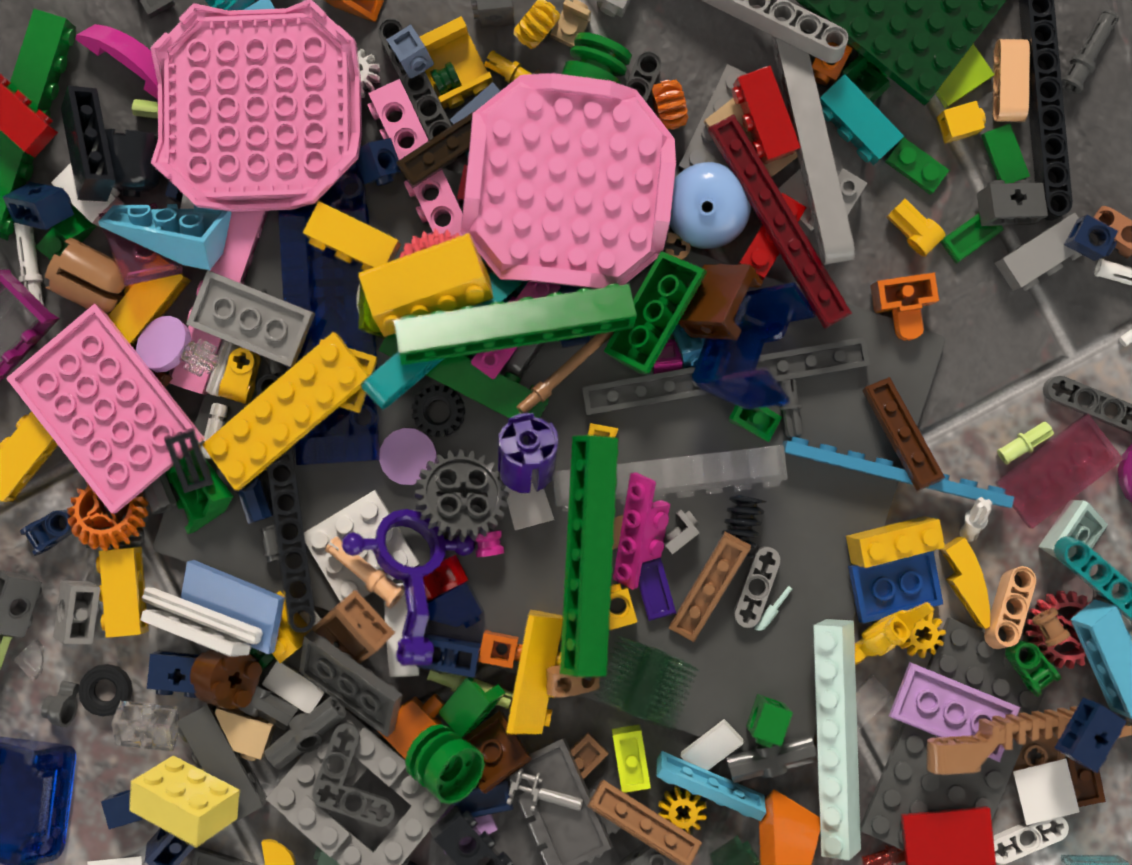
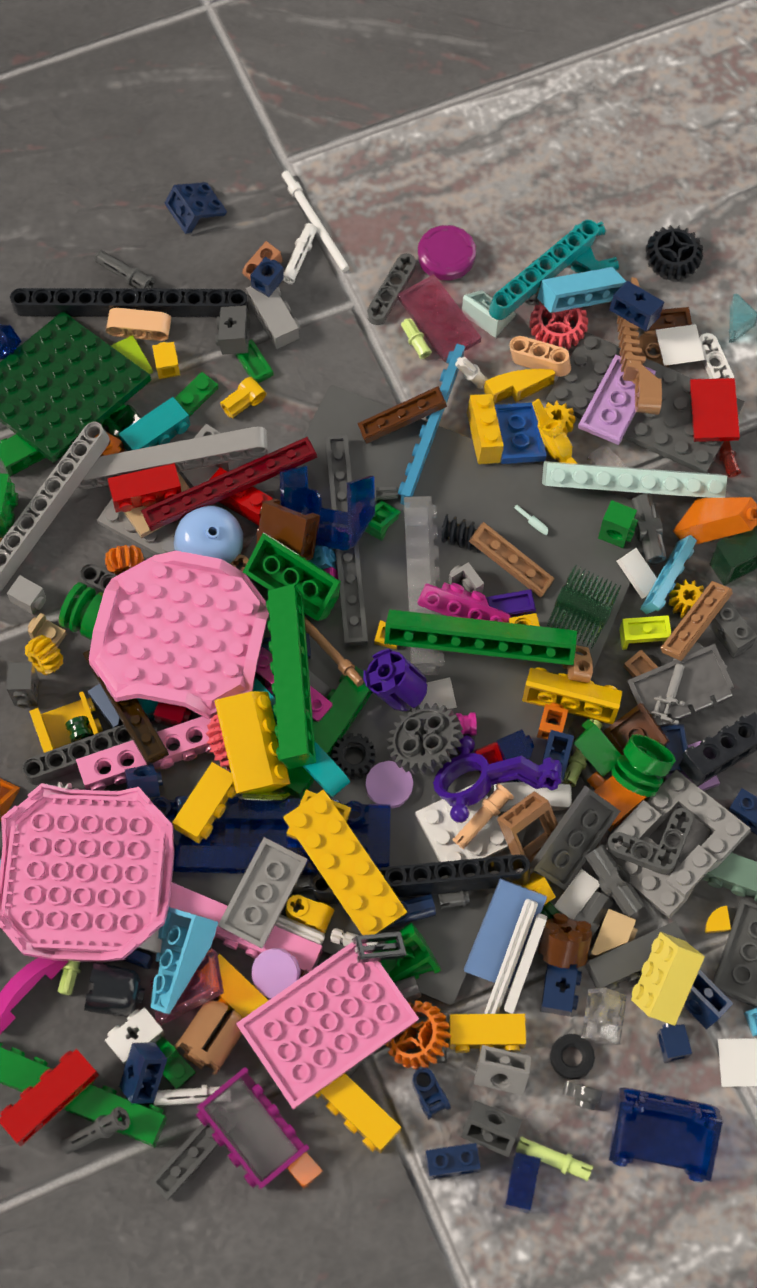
camera: 90 degrees left, 20 degrees down
(87, 144) = (95, 1022): black brick -> none
(200, 357) = (291, 937): clear gear -> none
(410, 51) = (53, 749): sand blue bracket -> none
(505, 67) = (77, 682): yellow pin -> none
(757, 610) = (517, 539): light grey beam -> none
(905, 299) = (299, 407): orange brick -> none
(1005, 154) = (194, 334): green tile -> none
(1035, 670) = (588, 343): green piece -> none
(1051, 627) = (556, 327): medium nougat bush -> none

